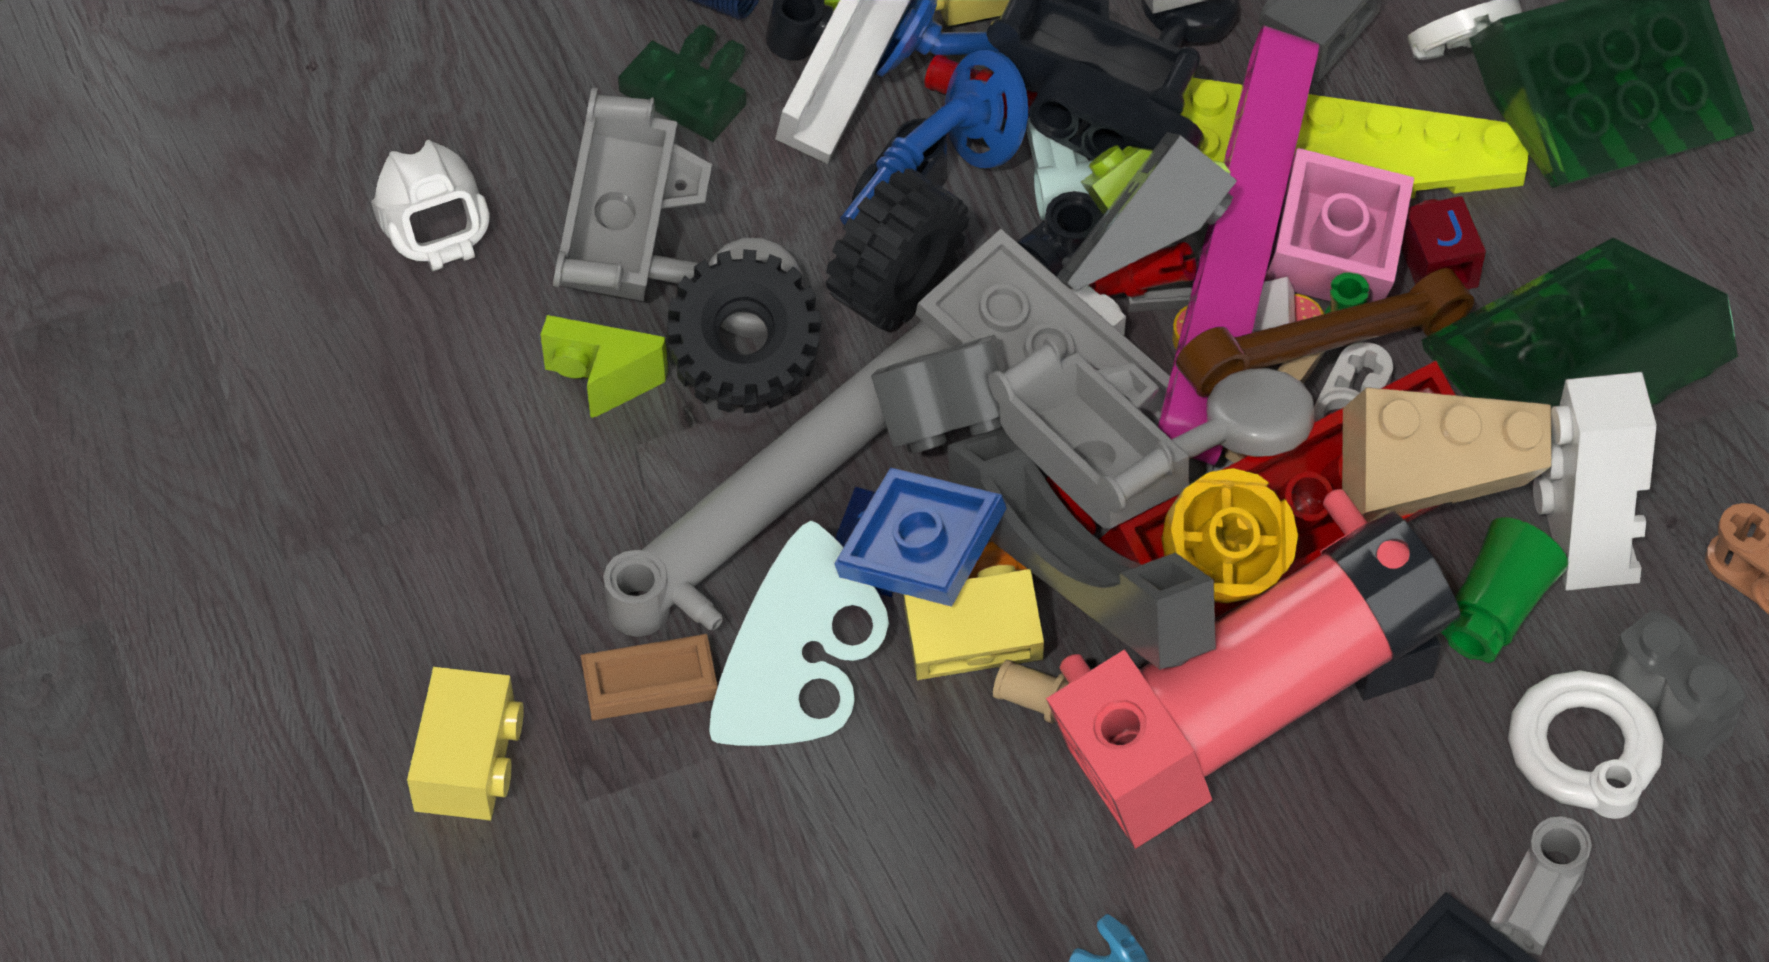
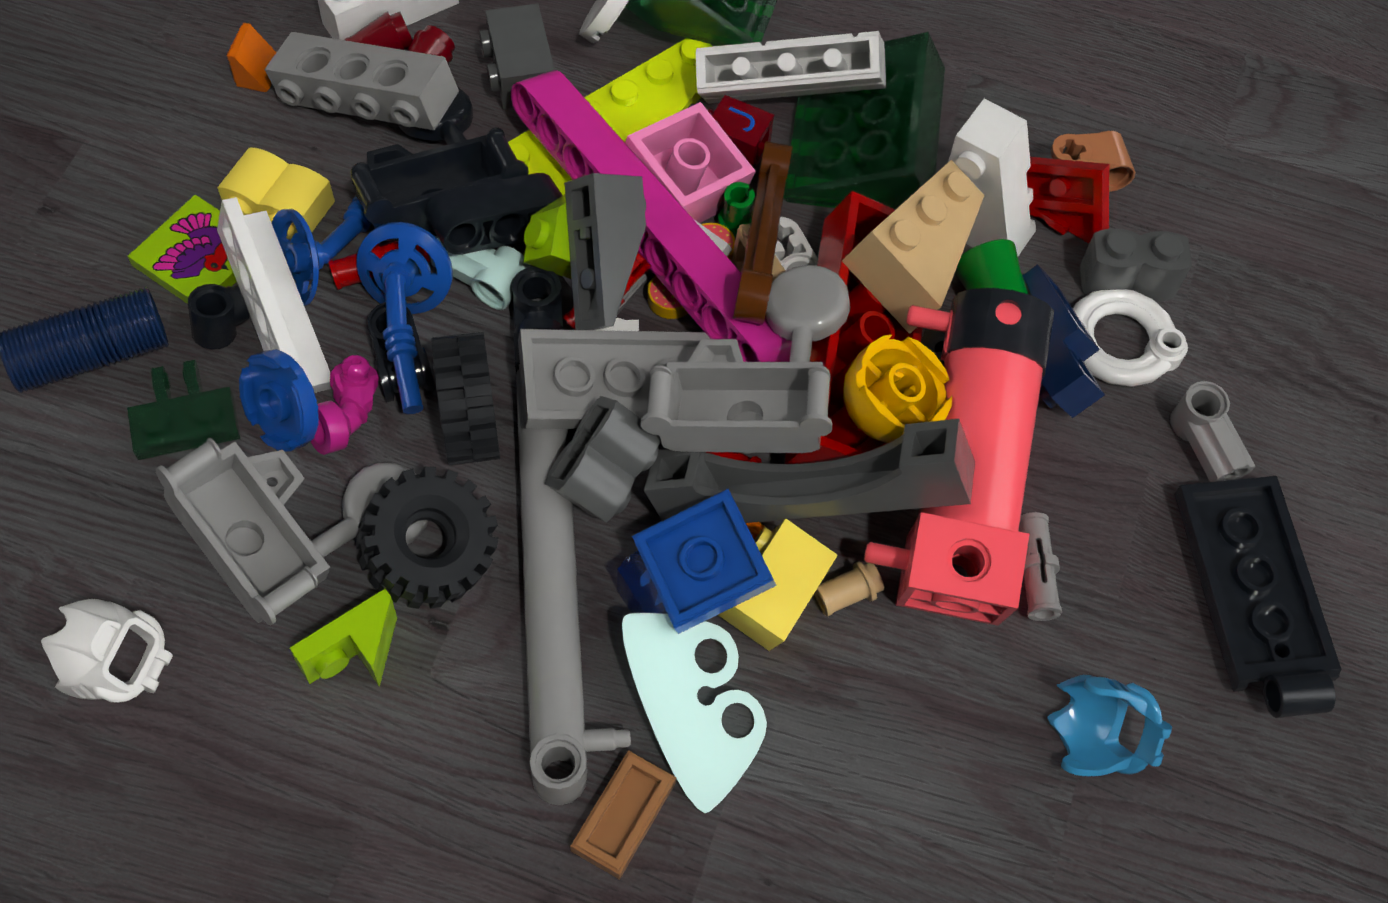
camera: 55 degrees left, 5 degrees up
(758, 127) = (279, 400): none -> blue tile
(832, 180) = (353, 390): none -> dark pink arm
(1224, 831) = (1040, 569): none -> light grey pin
(1499, 680) = (1066, 375): none -> dark blue slope
(1549, 220) = (791, 67): none -> white brick
(1690, 561) = (1070, 195): none -> red wing

